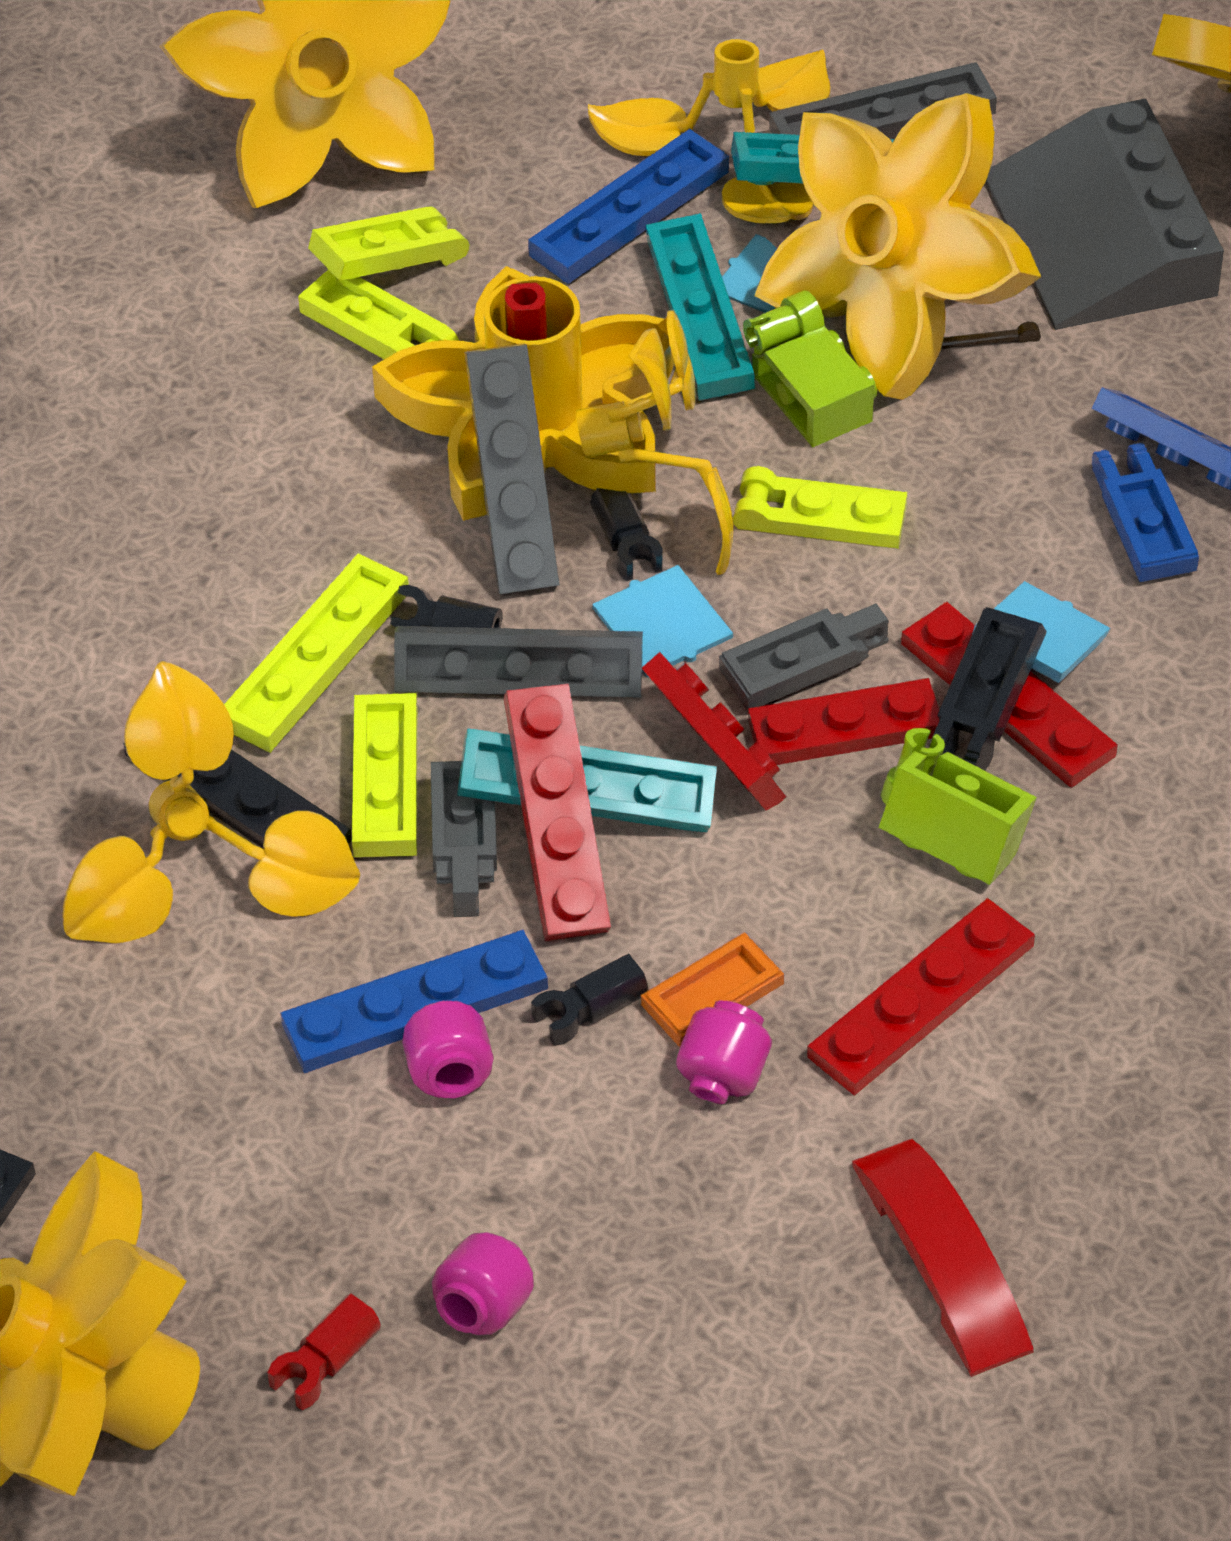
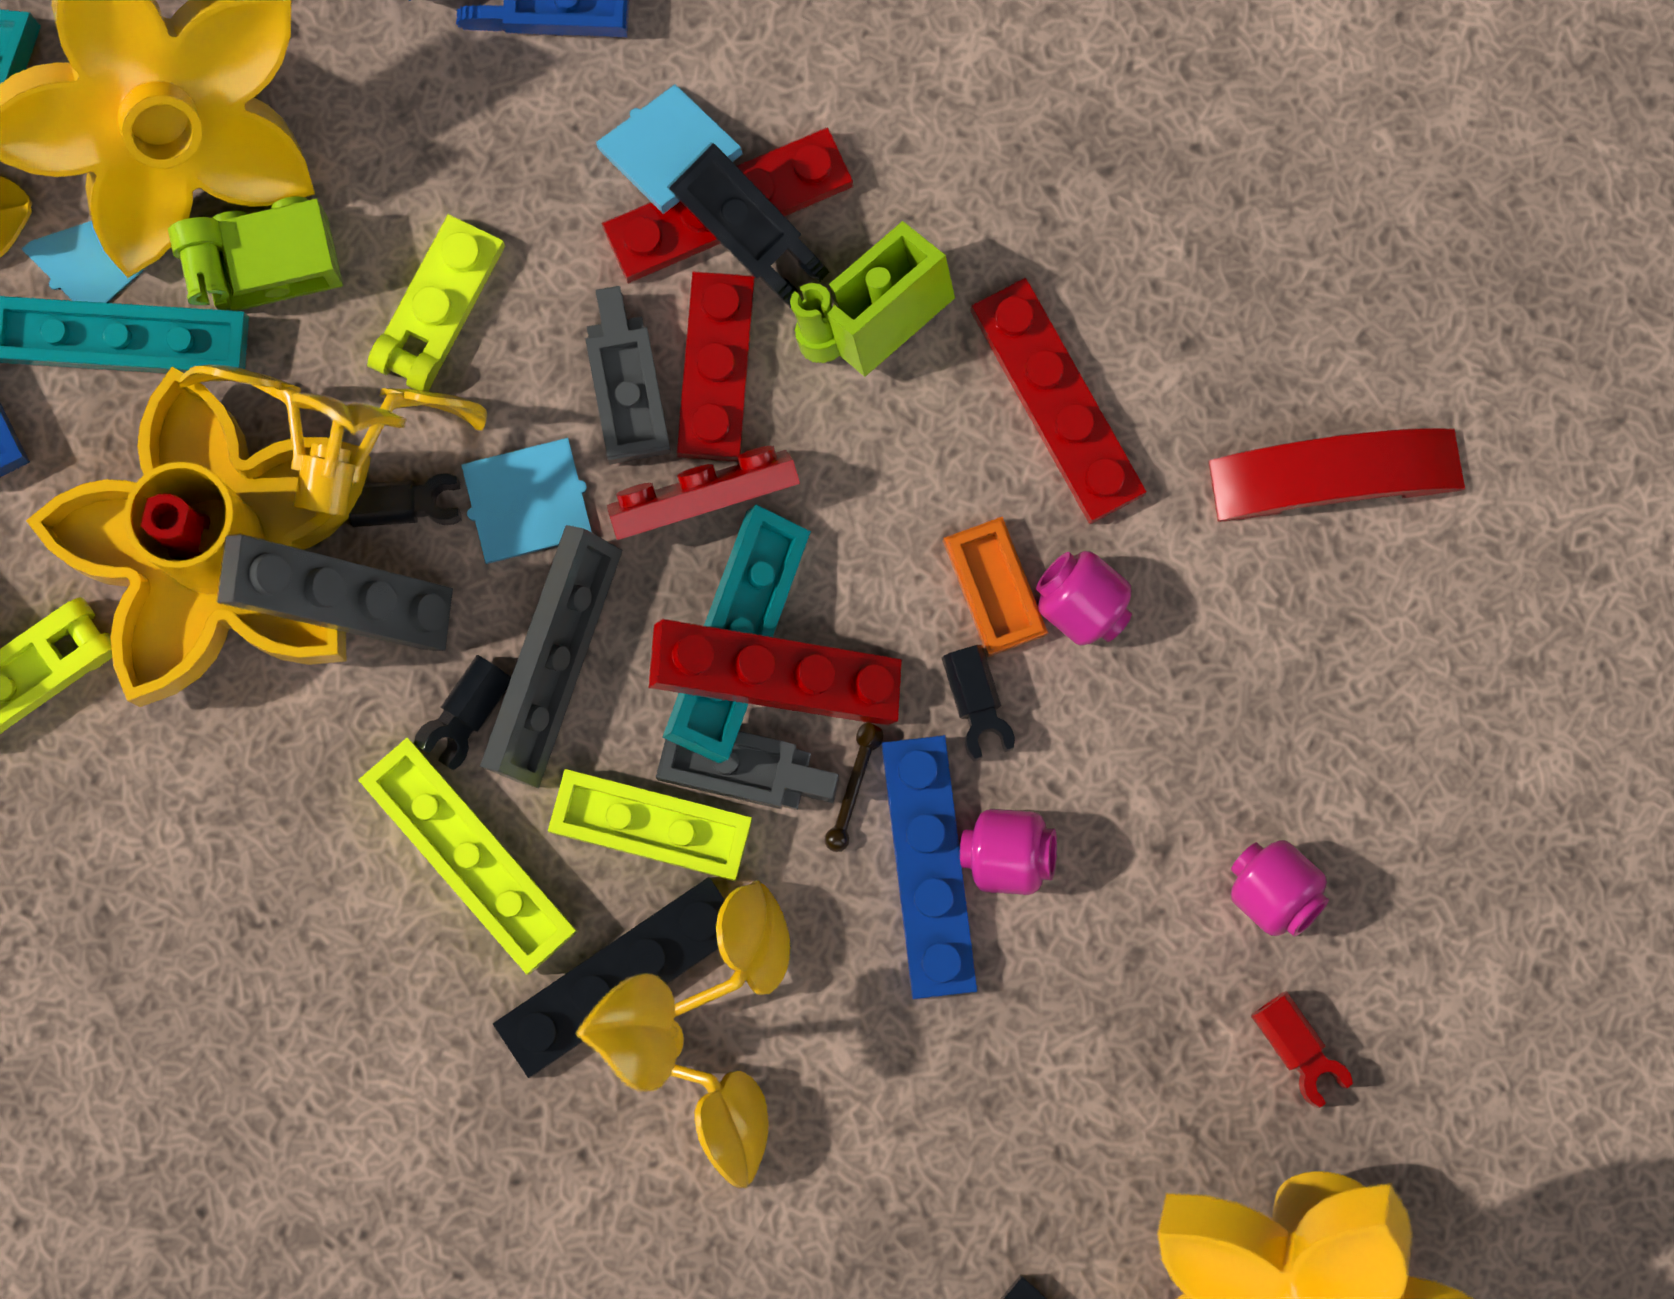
camera: 80 degrees left, 30 degrees up
(420, 925) = (869, 738): none -> dark brown hinge

